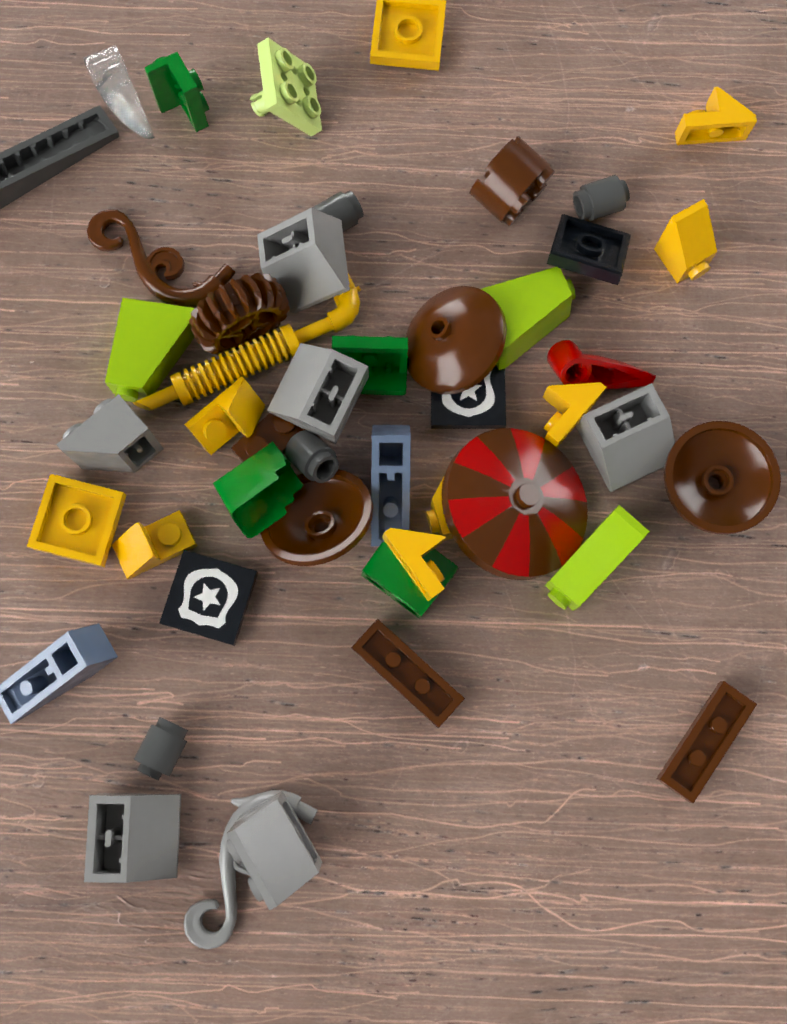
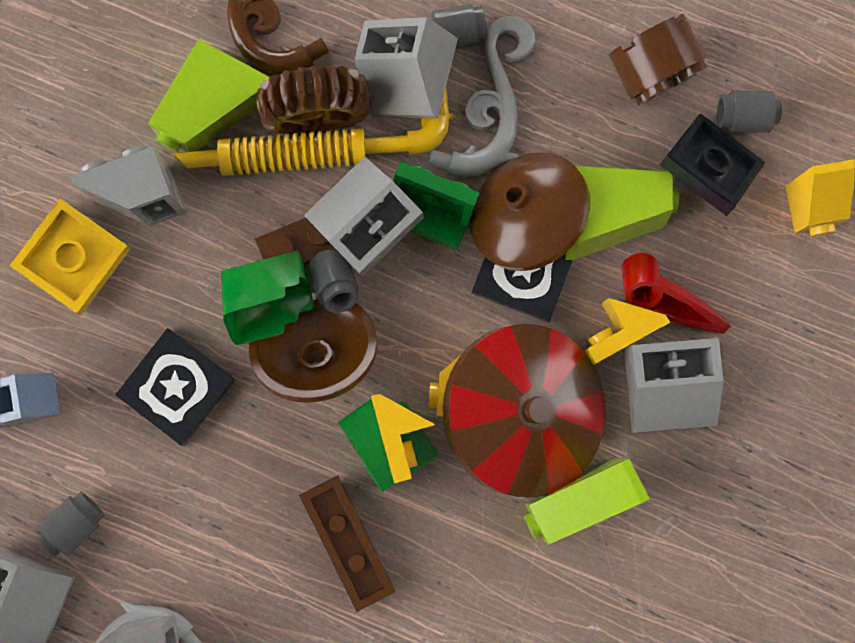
camera: 20 degrees right, 5 degrees up
(153, 544) = (140, 310): yellow slope -> none
(230, 412) = (266, 202): yellow slope -> none
(390, 479) = (405, 336): sand blue slope -> none
(396, 262) = (503, 101): none -> light grey plant
(740, 463) = (782, 470): reddish brown dish -> none

